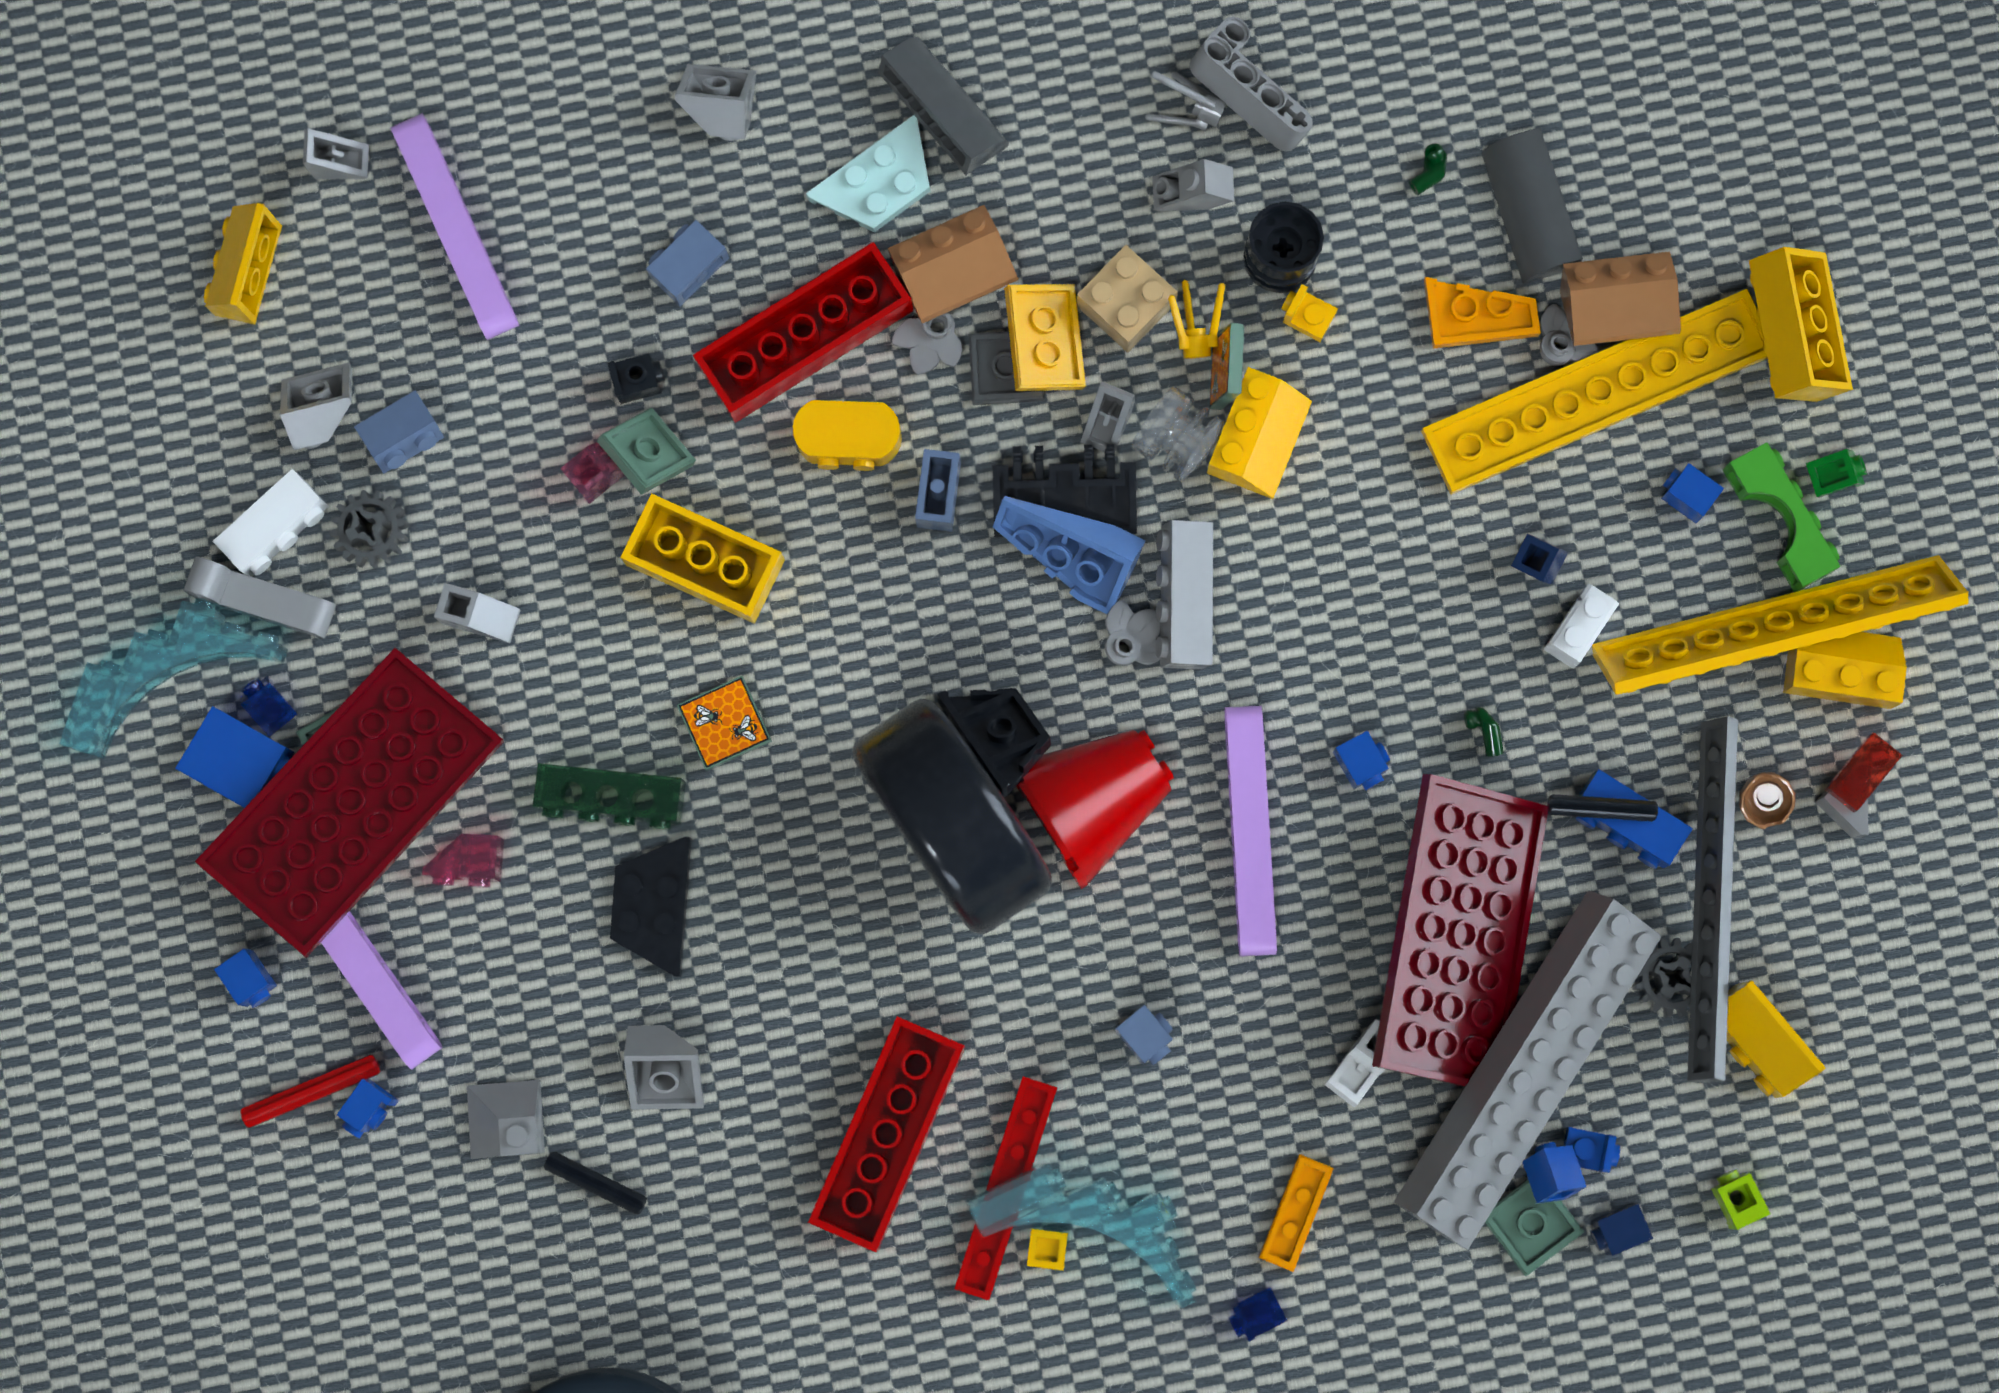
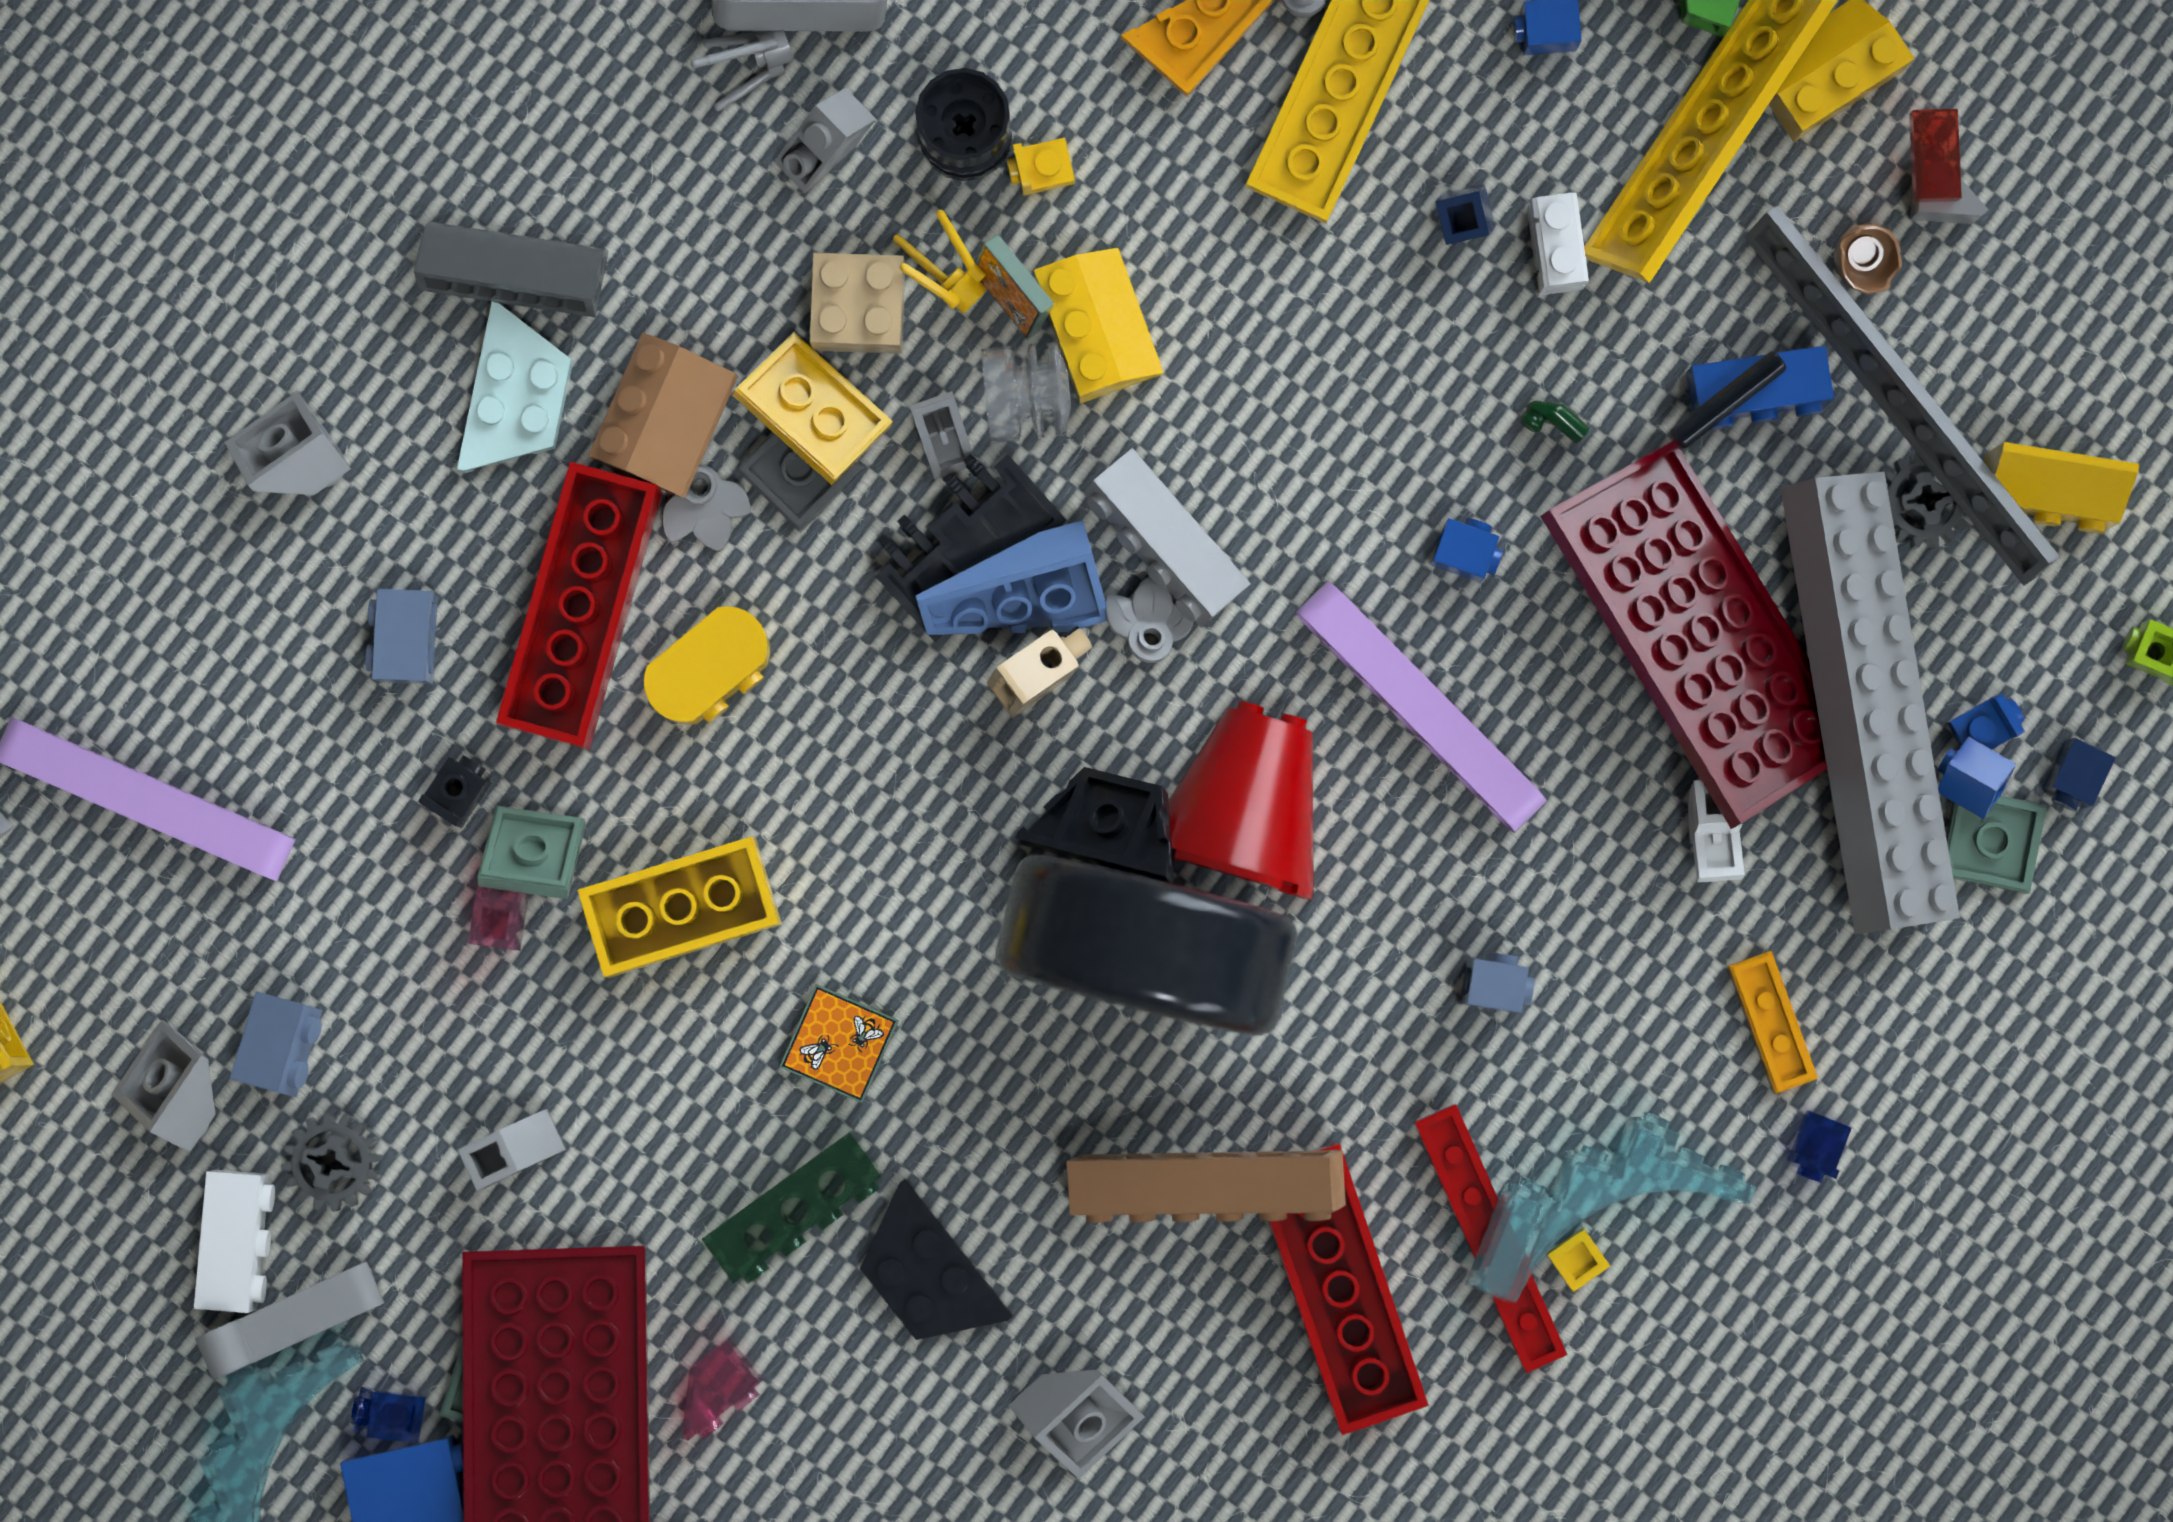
camera: 50 degrees left, 5 degrees up
(863, 997) = (1206, 1184): none -> medium nougat brick
(938, 490) = (844, 644): sand blue brick -> none
(1025, 606) = (1026, 680): none -> tan torso

